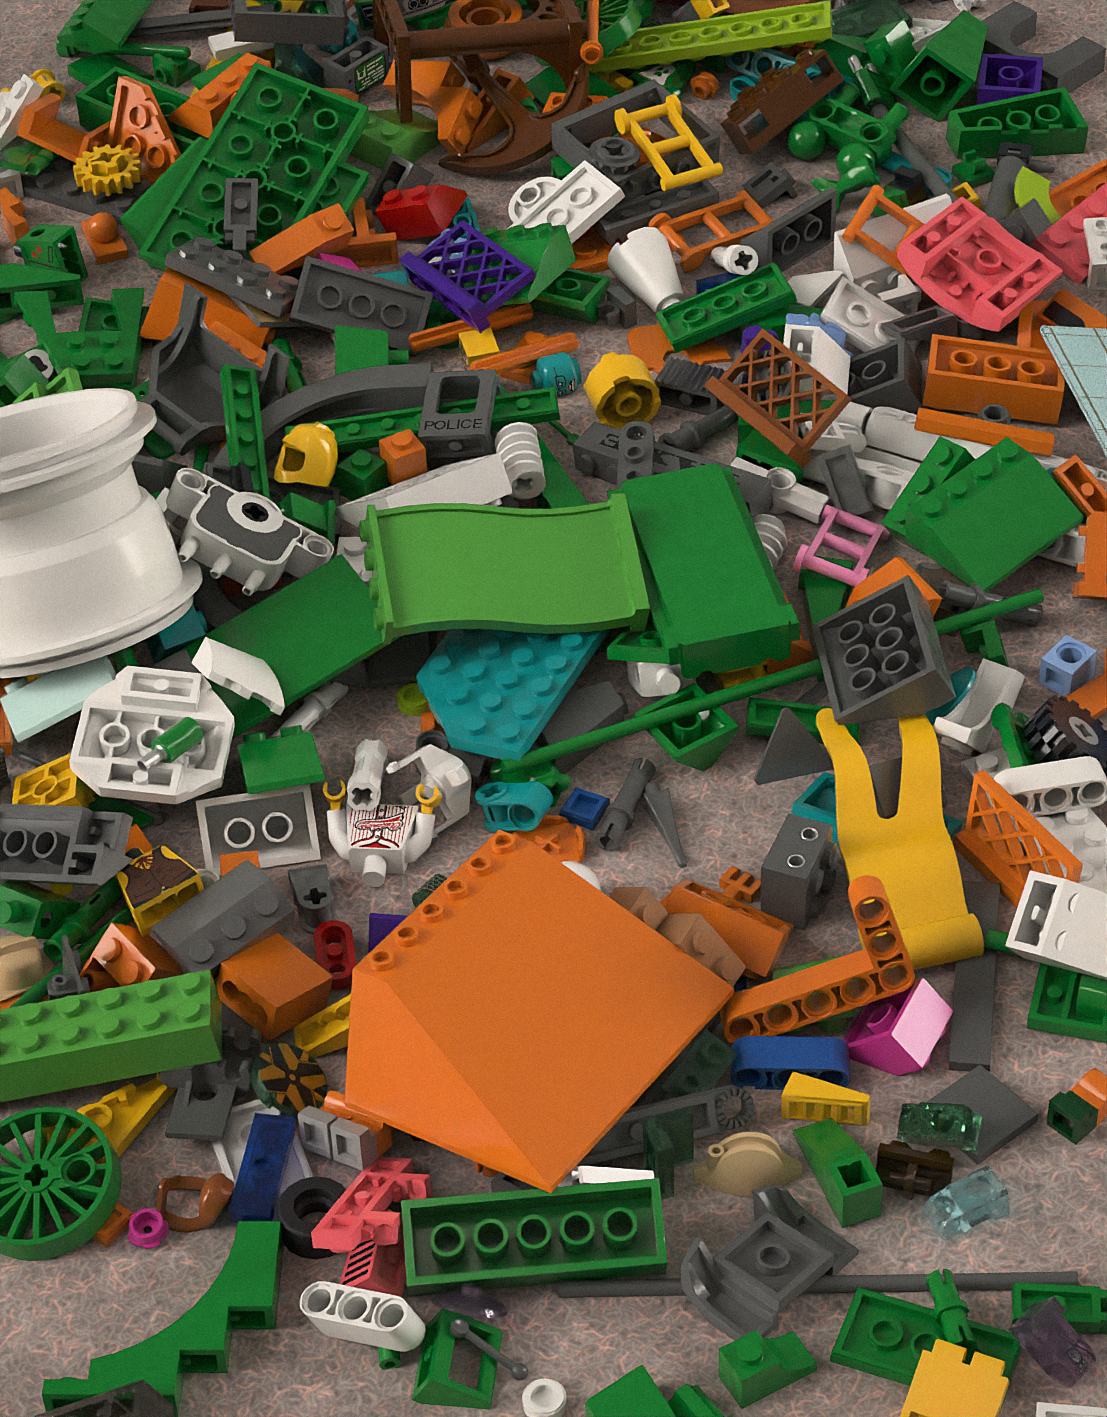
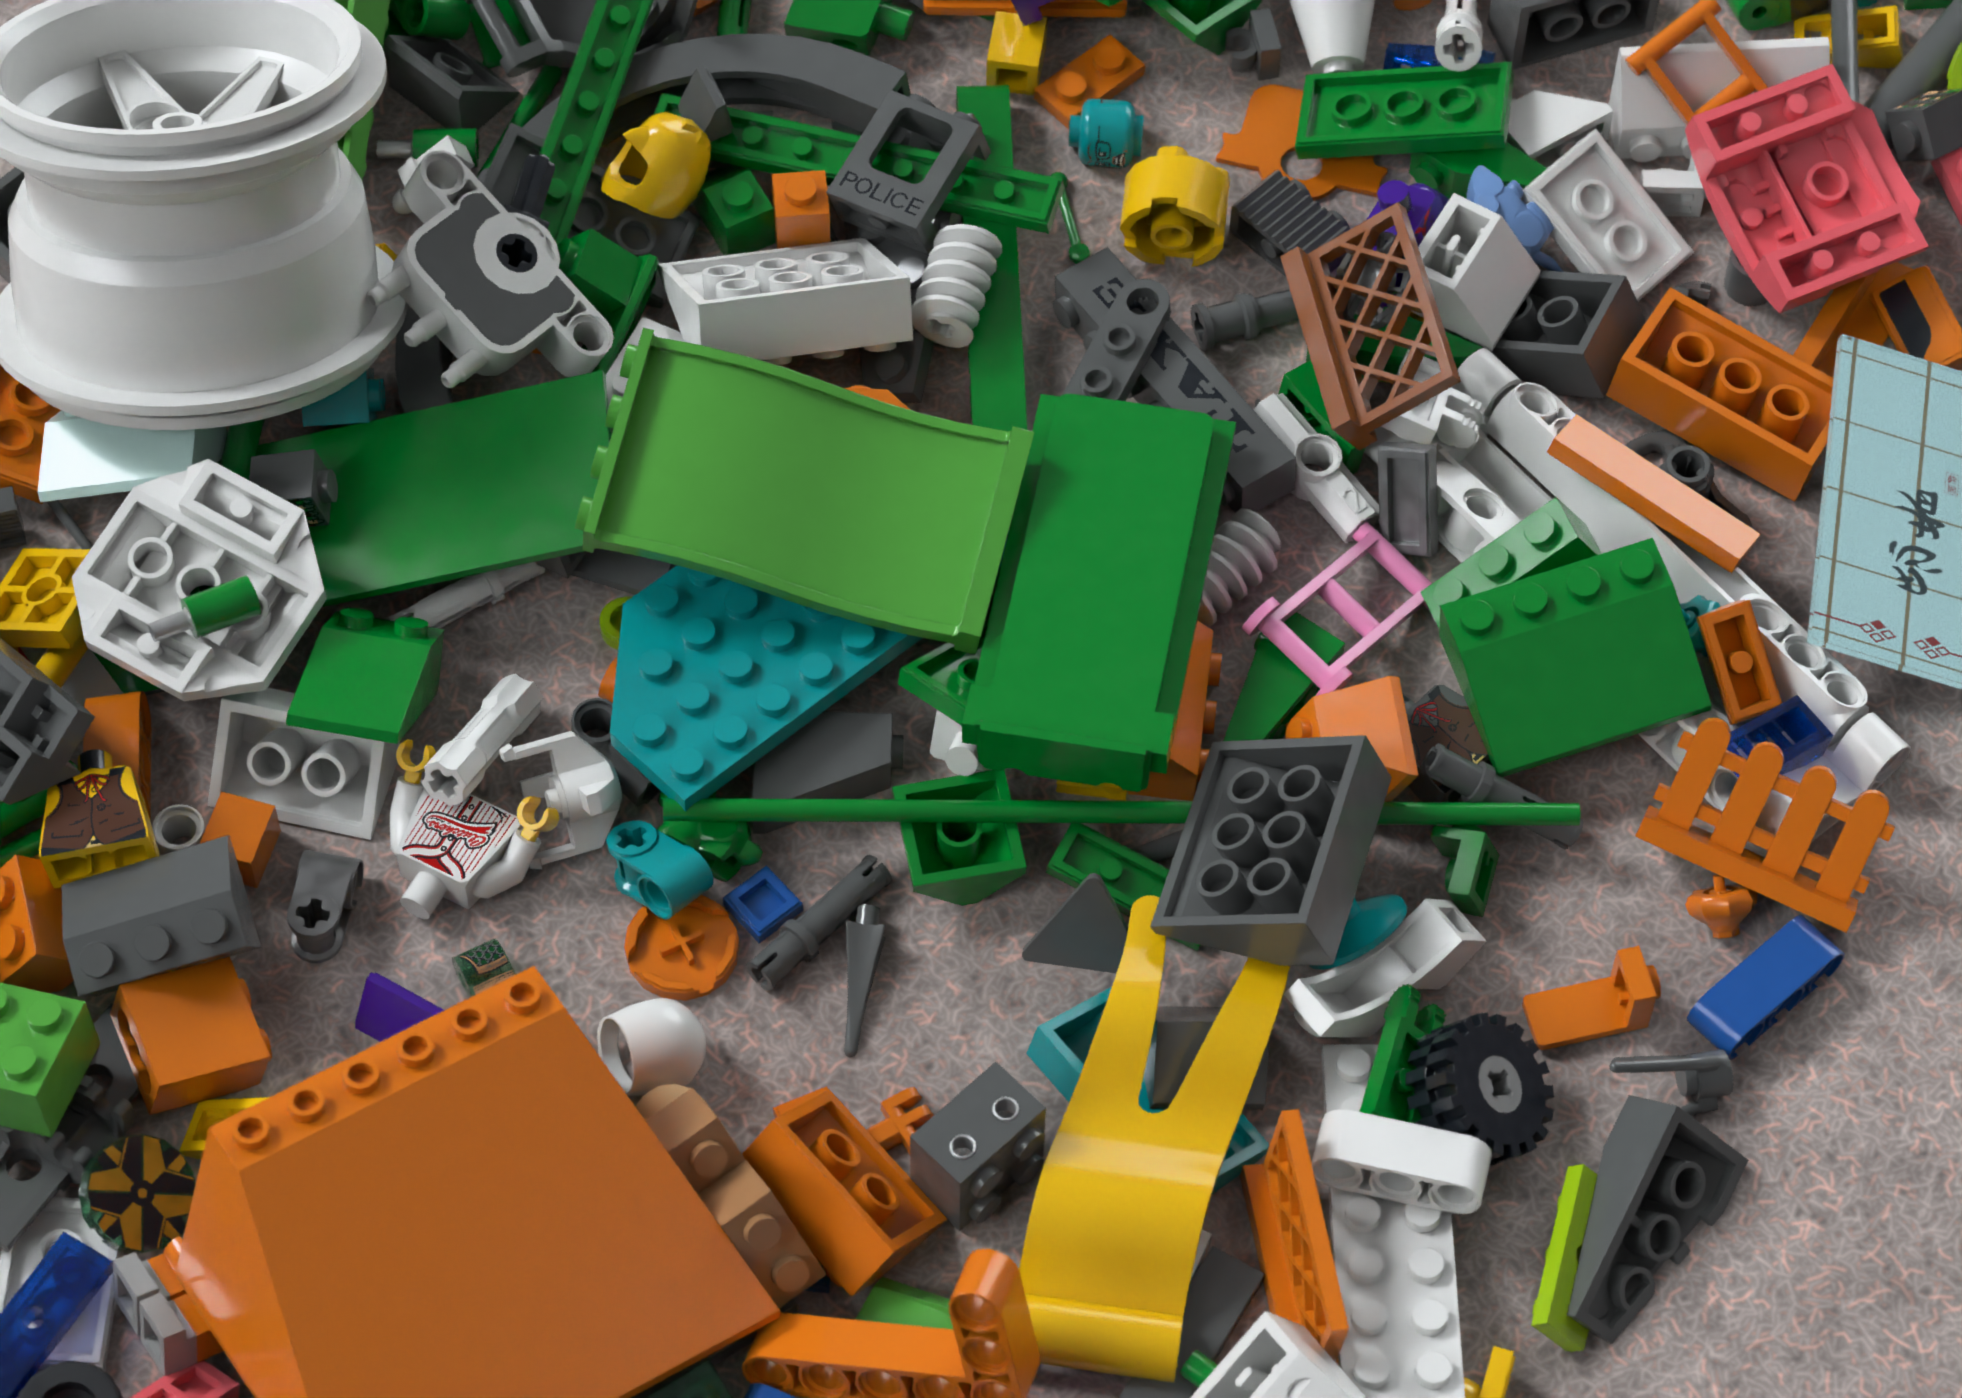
camera: 20 degrees right, 15 degrees up
(239, 673) = (364, 522): white slope -> none
(320, 411) = (705, 105): none -> dark grey slope
(335, 956) = (306, 1013): red plate -> none
(527, 354) = (1068, 88): orange axle -> none
(923, 324) = (1679, 255): dark grey slope -> none
(1067, 666) = (1557, 966): light blue brick -> none

